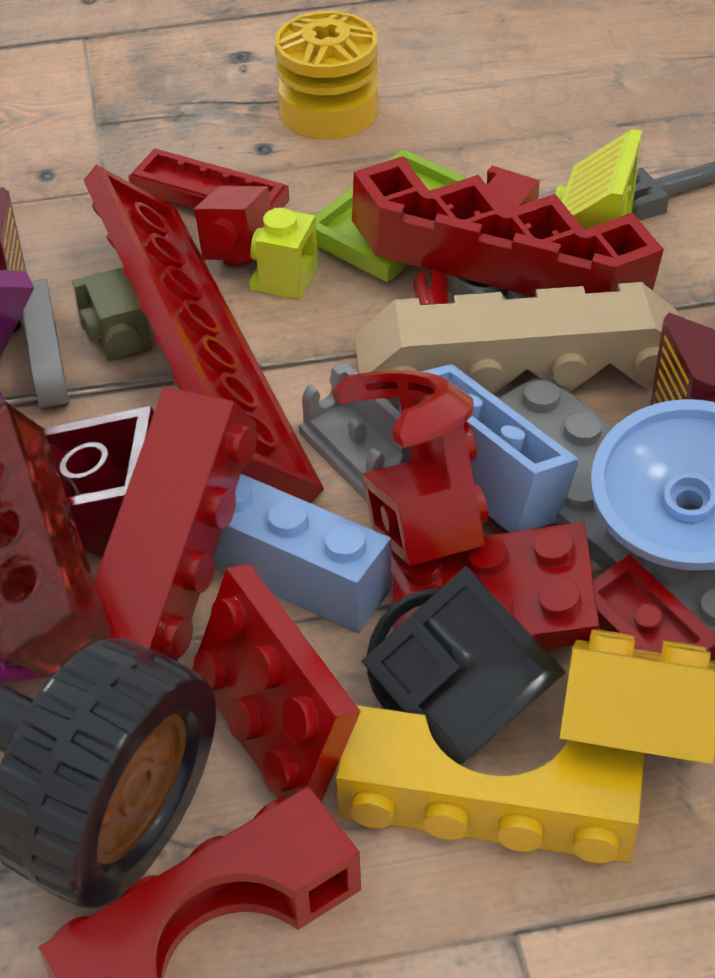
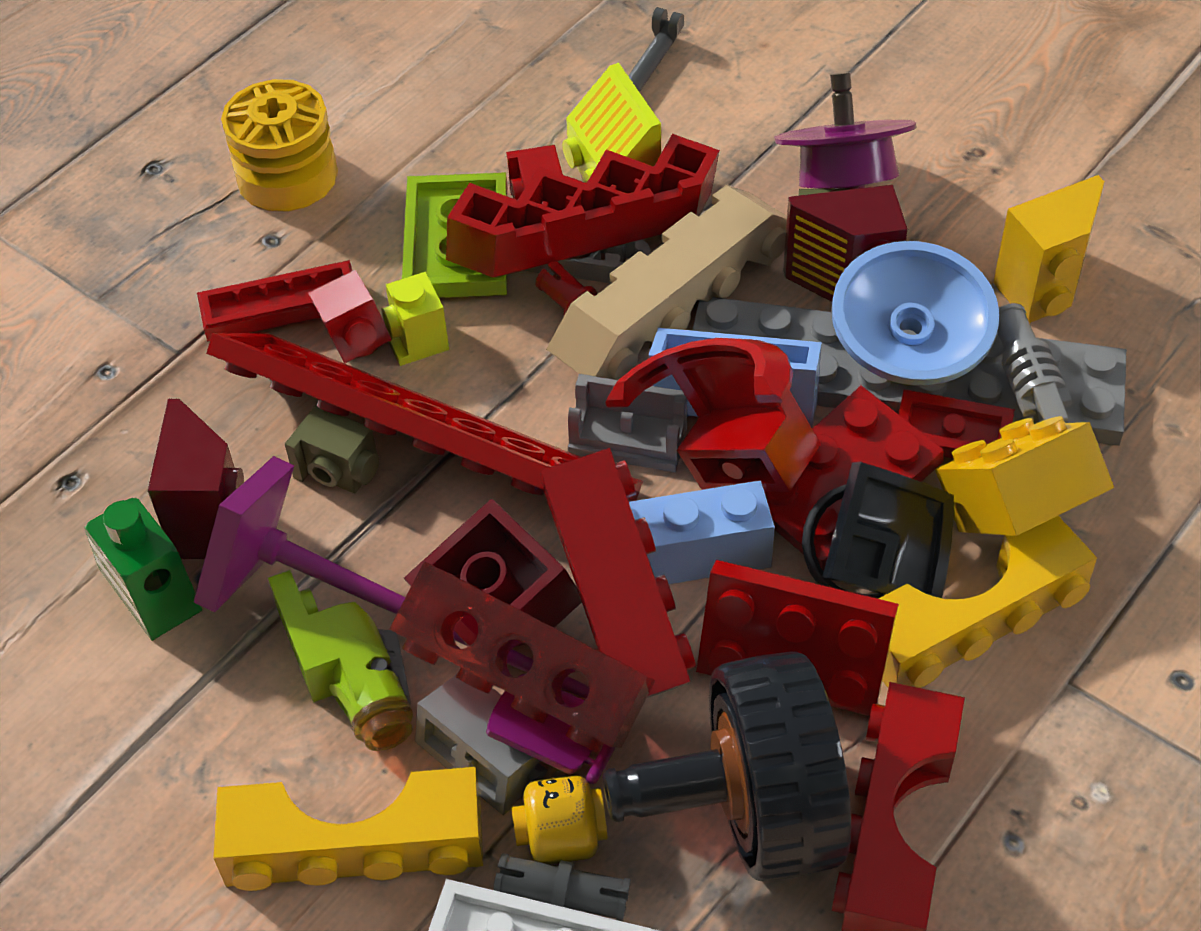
camera: 40 degrees left, 5 degrees up
(44, 347) = (319, 519): light grey beam -> none

